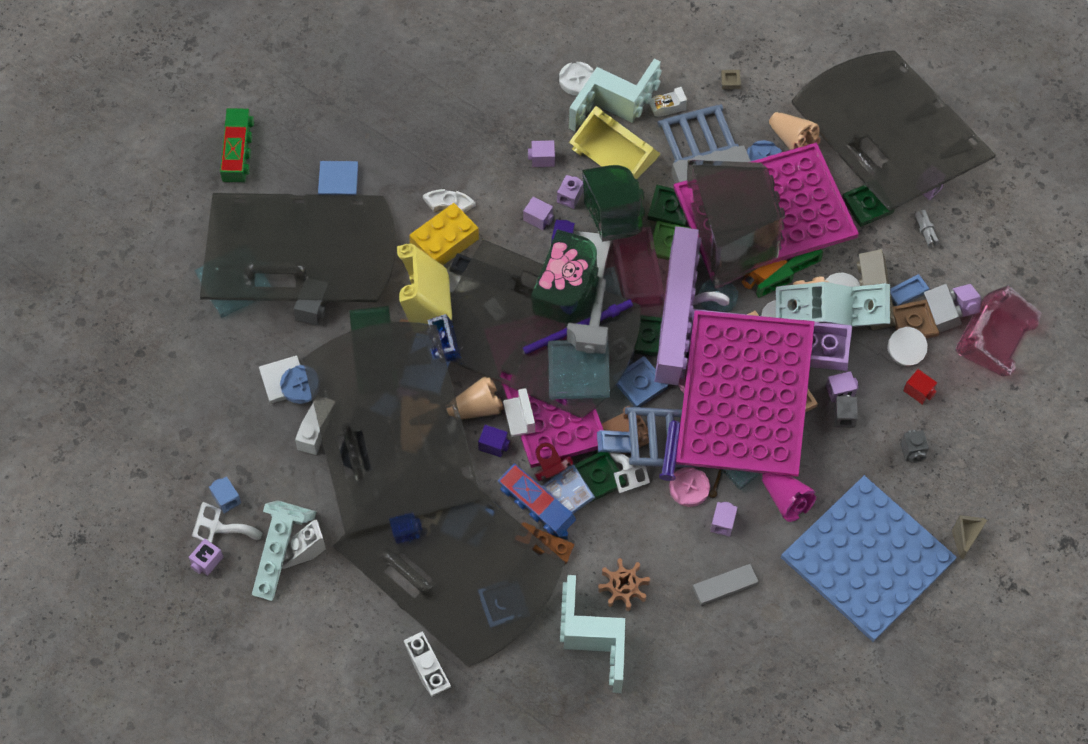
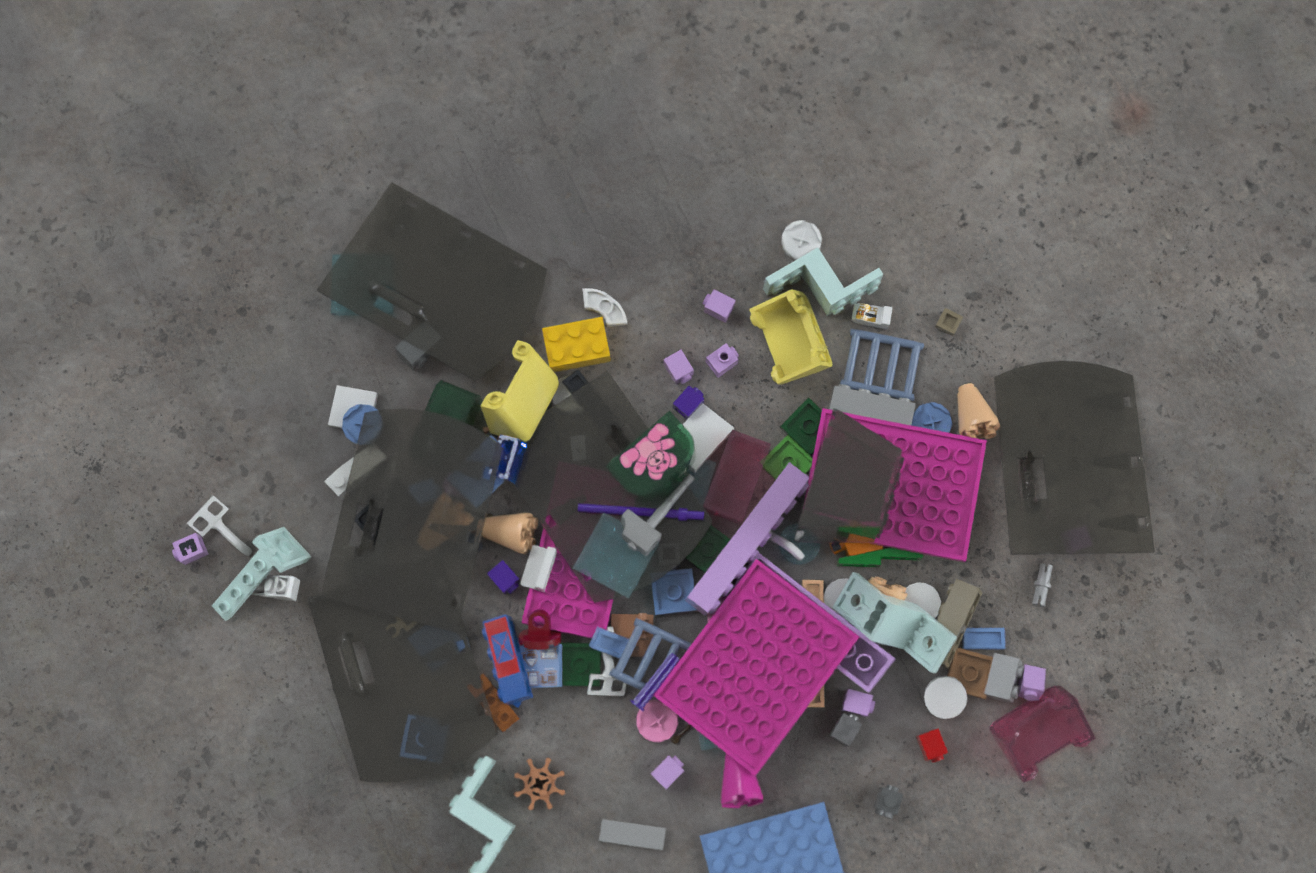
camera: 30 degrees right, 15 degrees up
(224, 494) = (238, 496): medium blue brick -> none
(236, 144) = (438, 143): green brick -> none
(338, 178) = (515, 228): medium blue tile -> none
(405, 527) = (373, 622): clear blue brick -> none
(426, 664) = (321, 763): white slope -> none
(613, 201) = (750, 400): clear green brick -> none
(865, 205) = (994, 527): dark green plate -> none

